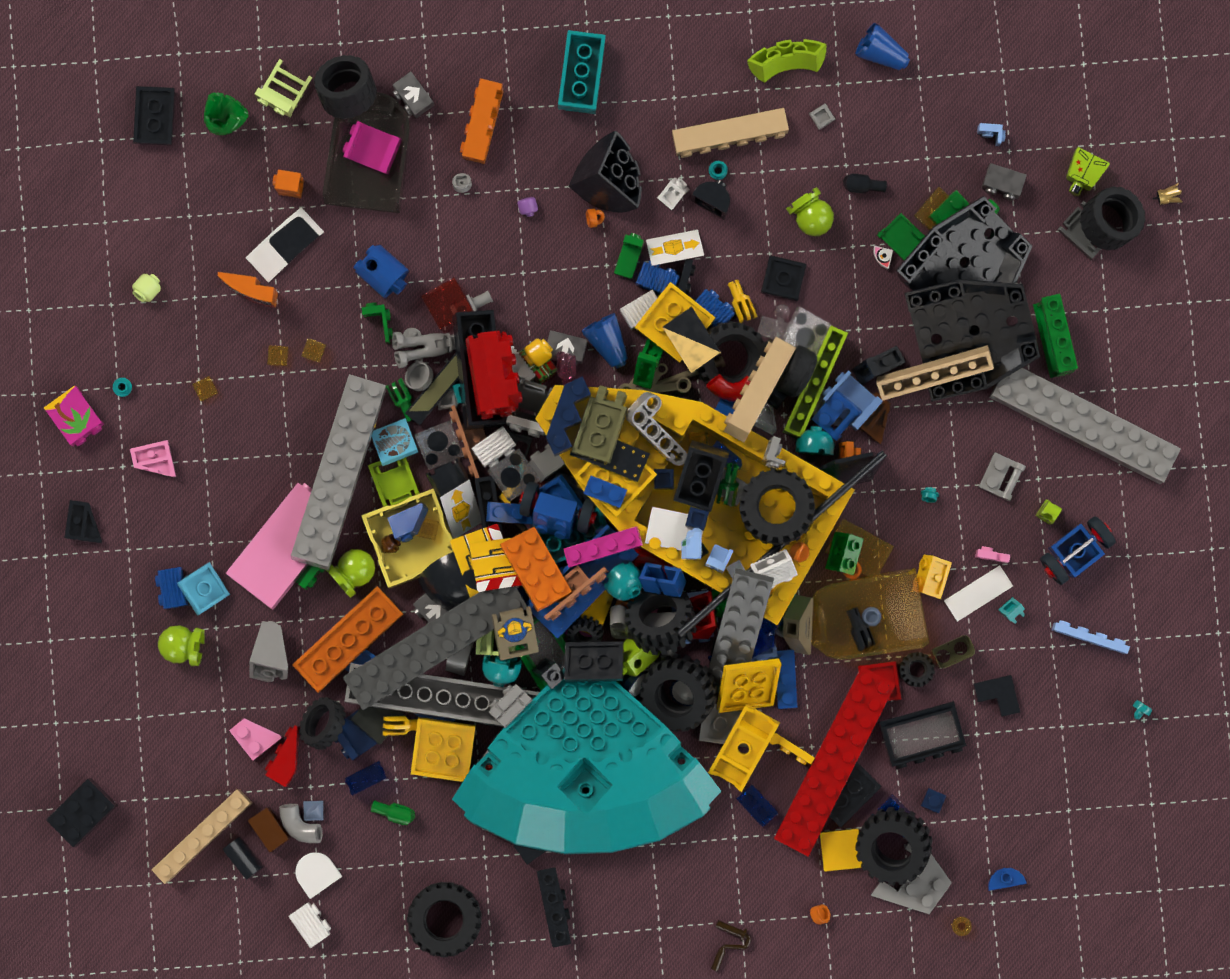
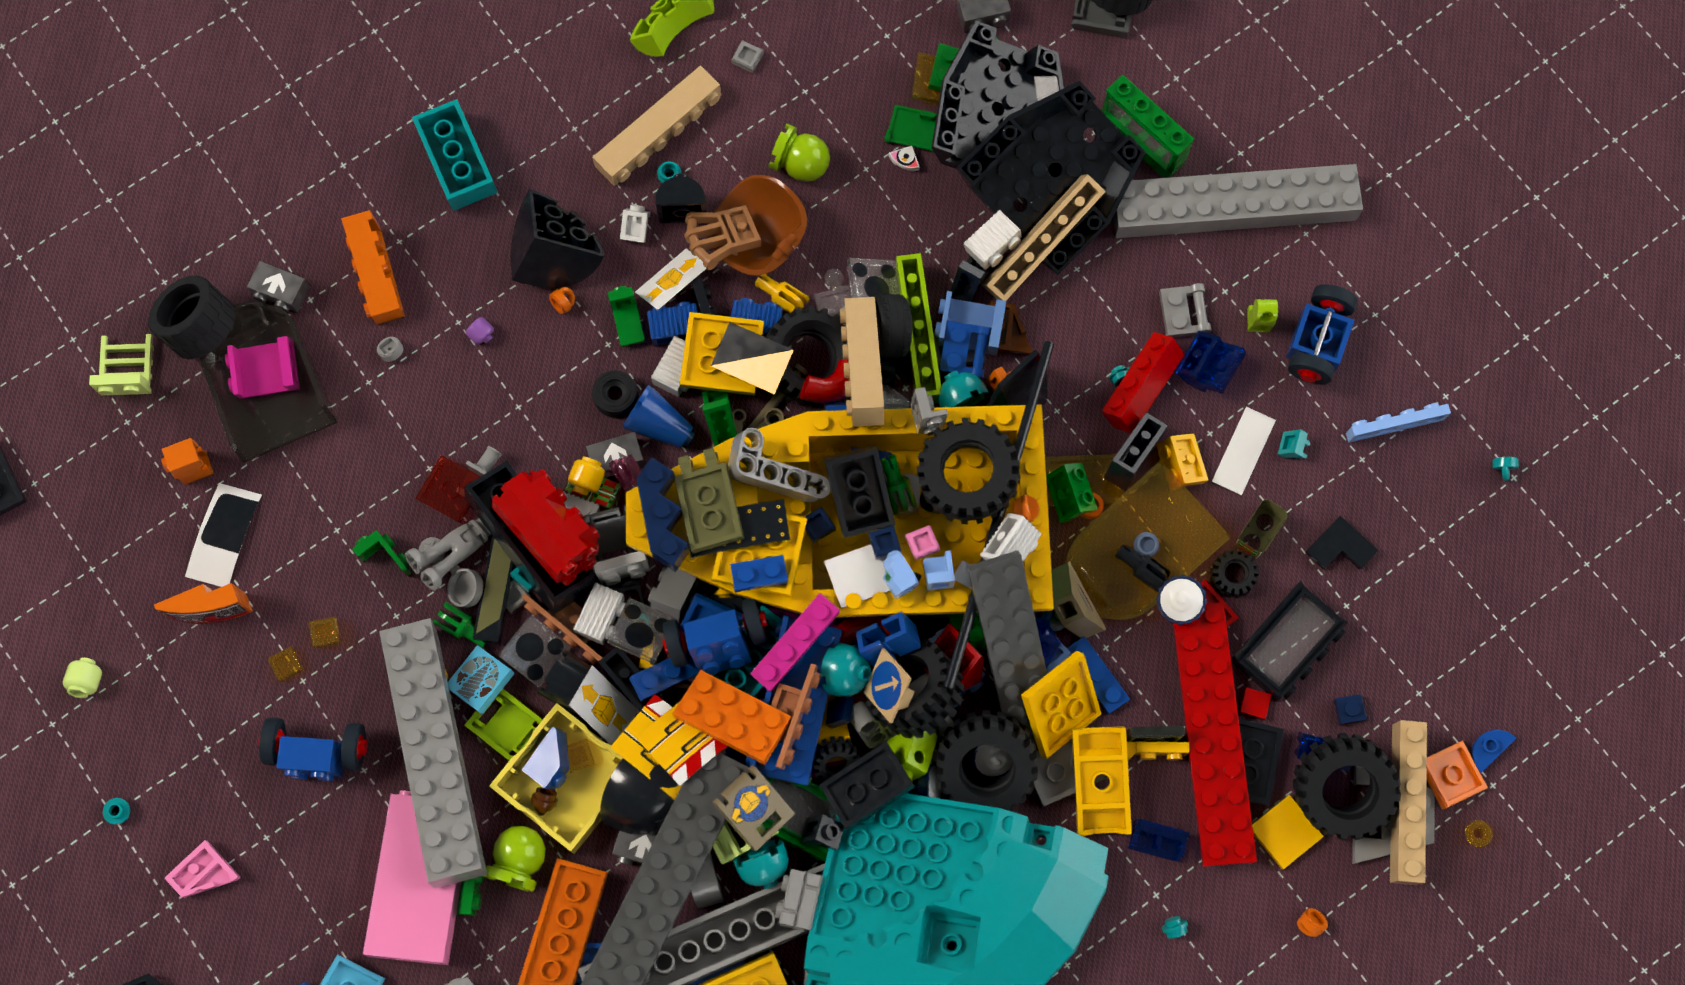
camera: 30 degrees left, 10 degrees down
(74, 416) = (74, 880): dark pink panel -> none
(205, 388) = (219, 753): clear yellow tile -> none
(223, 114) = (67, 431): green hair -> none
(261, 428) = (312, 756): none -> brick
(387, 276) = (361, 495): blue cylinder -> none
(596, 294) = (611, 380): none -> black tyre
(606, 604) = (839, 712): none -> dark blue tile
(643, 610) = (889, 686): none -> piece
(721, 533) = (922, 542): none -> bright pink tile
(732, 864) = (1175, 927): none -> teal plate
(737, 238) = (736, 229): none -> medium nougat plate
(751, 246) = (778, 220): none -> dark orange piece
(783, 278) = (817, 246): black tile -> none
(795, 739) = (1155, 734): none -> pearl dark grey tile
(862, 184) = (835, 97): black arm -> none
(867, 666) = (1181, 599): none -> white piece
(875, 759) = (1254, 703): none -> red tile
(901, 354) = (993, 240): none -> white brick
(903, 552) = (1135, 451): none -> black brick
(926, 882) = (1409, 821): none -> tan brick
(940, 509) = (1143, 382): none -> red brick
(969, 880) = (1453, 775): none -> orange tile
(988, 554) = (1229, 400): bright pink plate -> none
(993, 522) = (1209, 363): none -> clear blue brick

